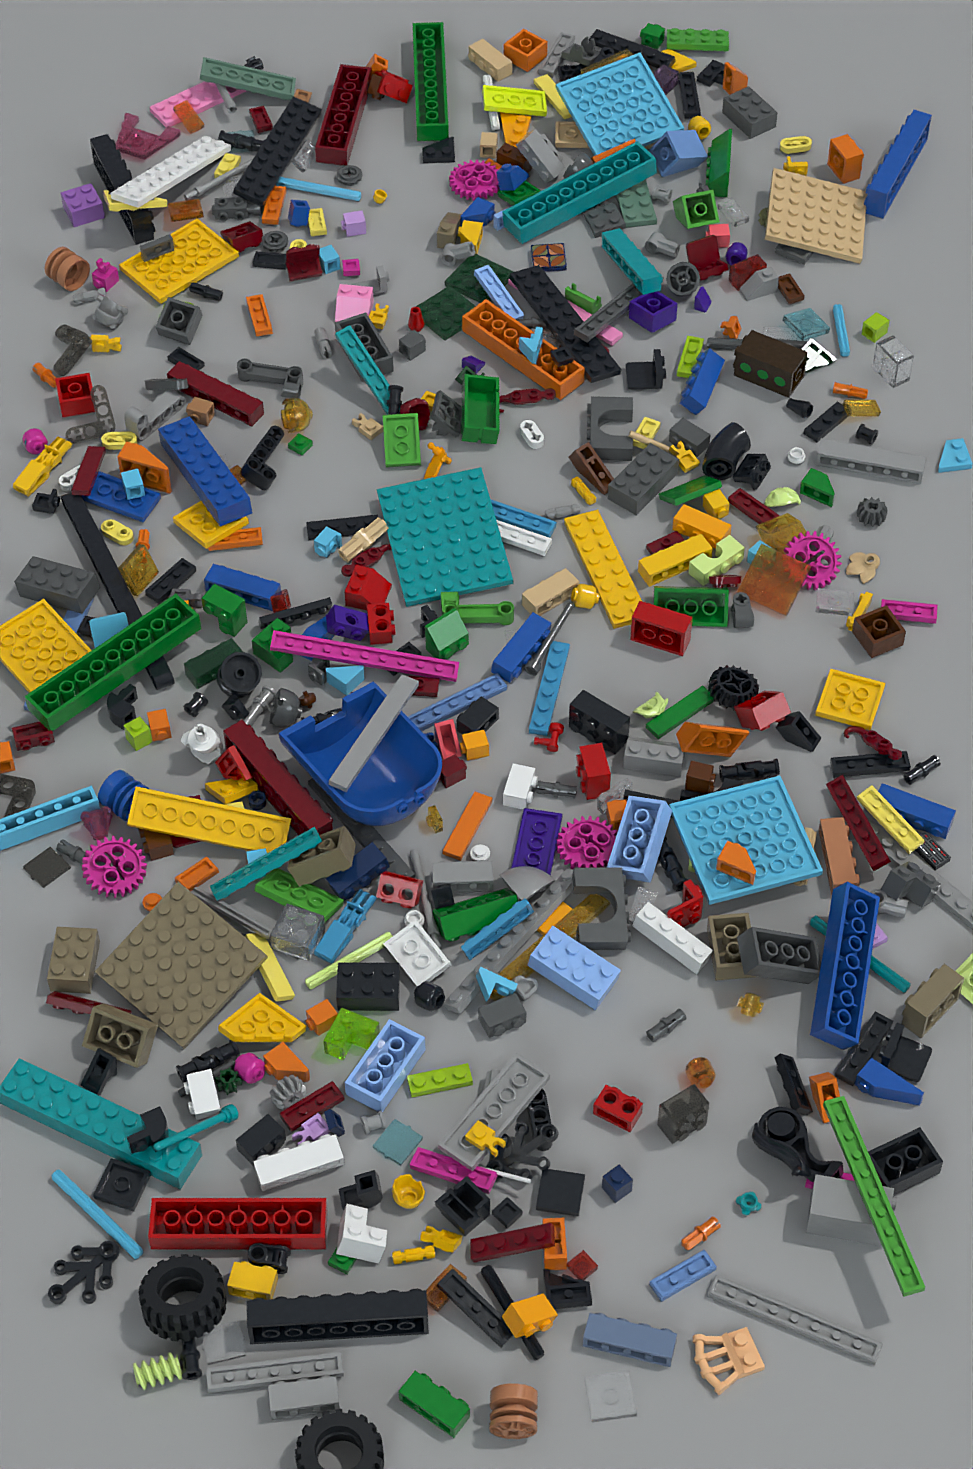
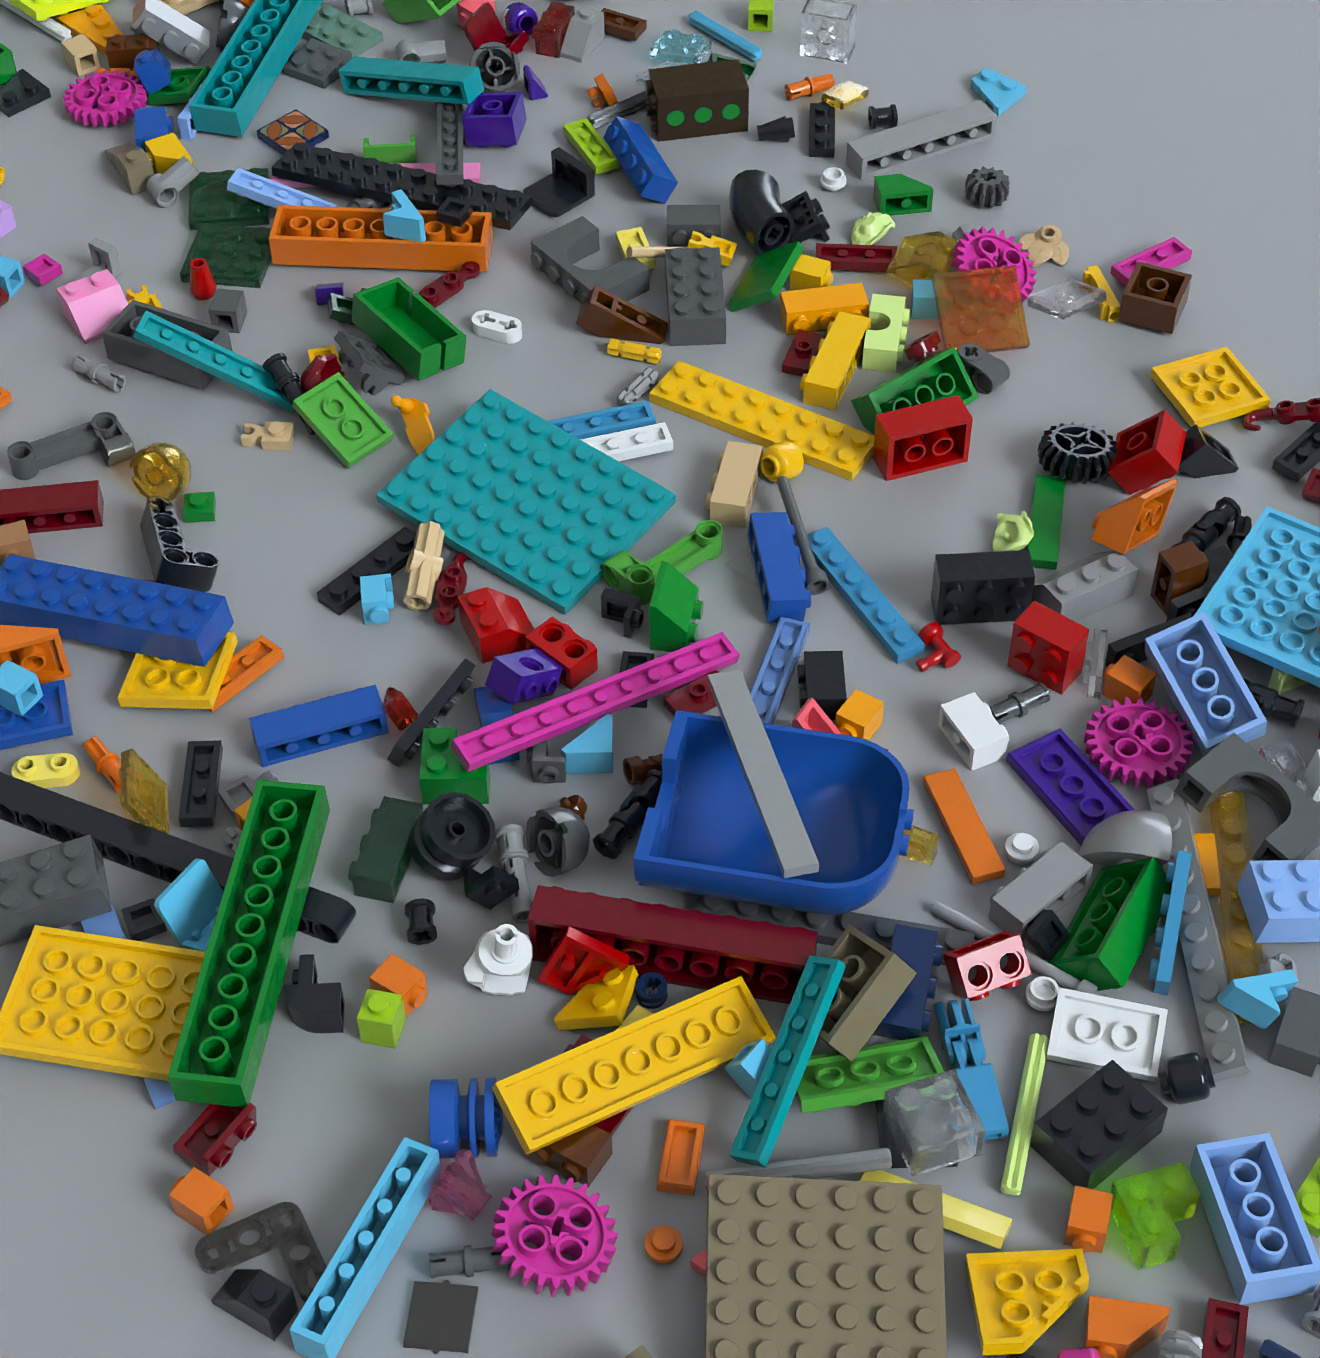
camera: 40 degrees left, 5 degrees down
(227, 607) = (336, 759): green brick -> none

